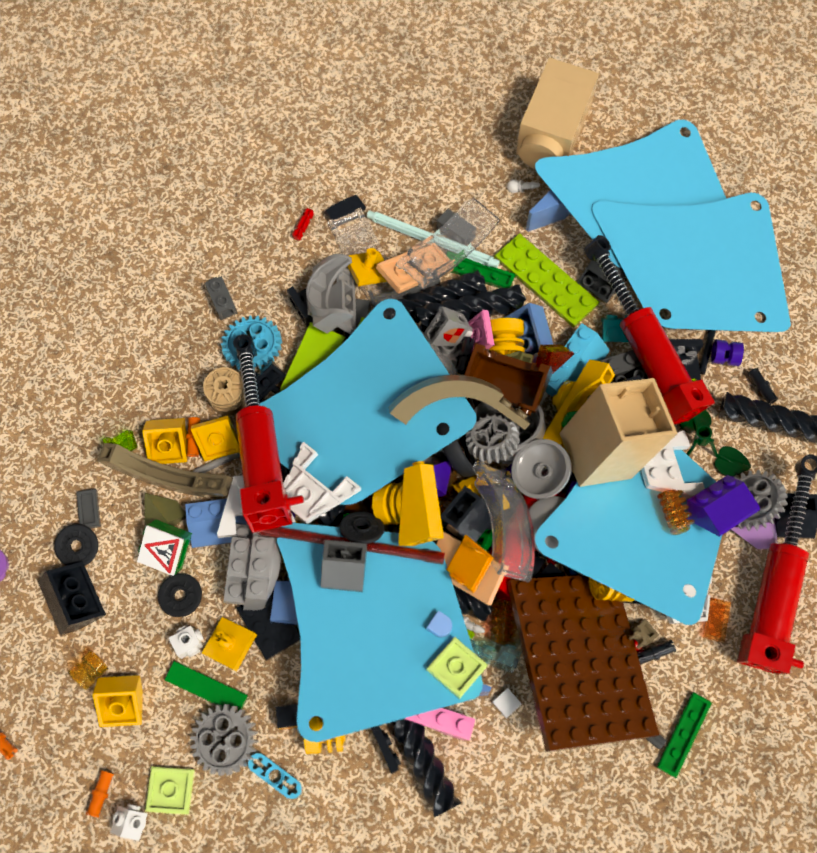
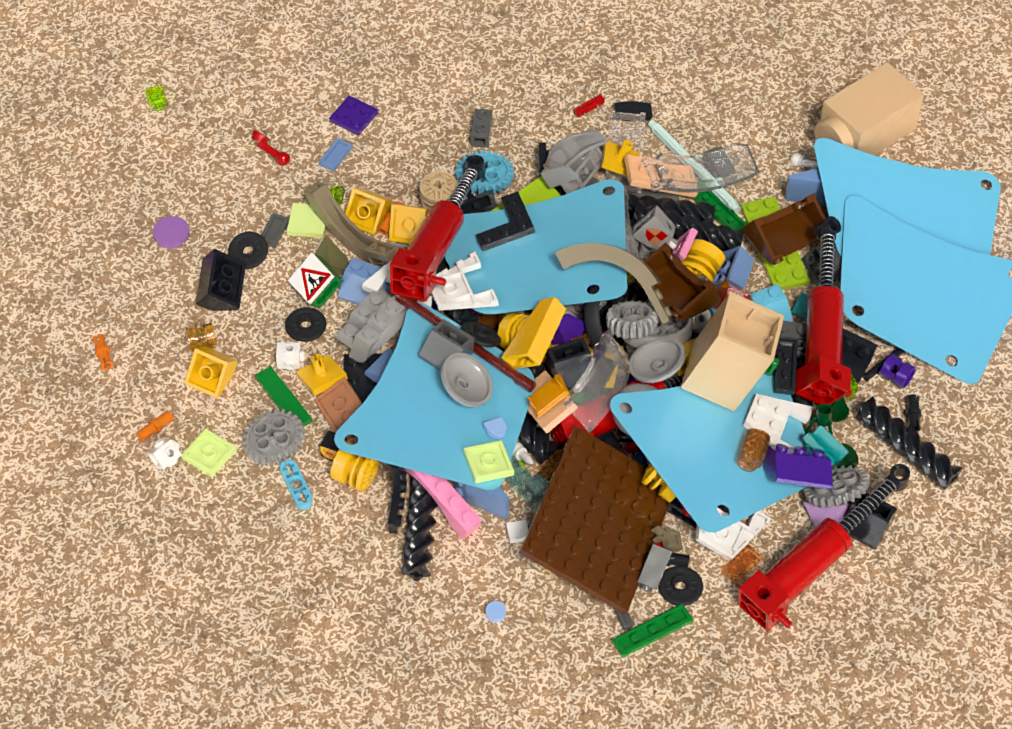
camera: 30 degrees right, 15 degrees down
(18, 417) = (281, 157): none -> red piece
(91, 345) = (353, 115): none -> dark purple plate
(99, 396) = (335, 154): none -> medium blue tile
(113, 484) = (305, 222): none -> yellowish green tile
(271, 670) = (338, 404): none -> nougat tile
(326, 397) = (518, 227): none -> black plate
(385, 593) = (466, 380): none -> light grey dish
(538, 800) = (495, 611): none -> light blue tile
(555, 263) = (786, 229): none -> reddish brown windscreen
(654, 673) = (654, 567): none -> brick
(671, 683) = (681, 574): none -> black wheel
(718, 463) = (825, 441): none -> teal bracket

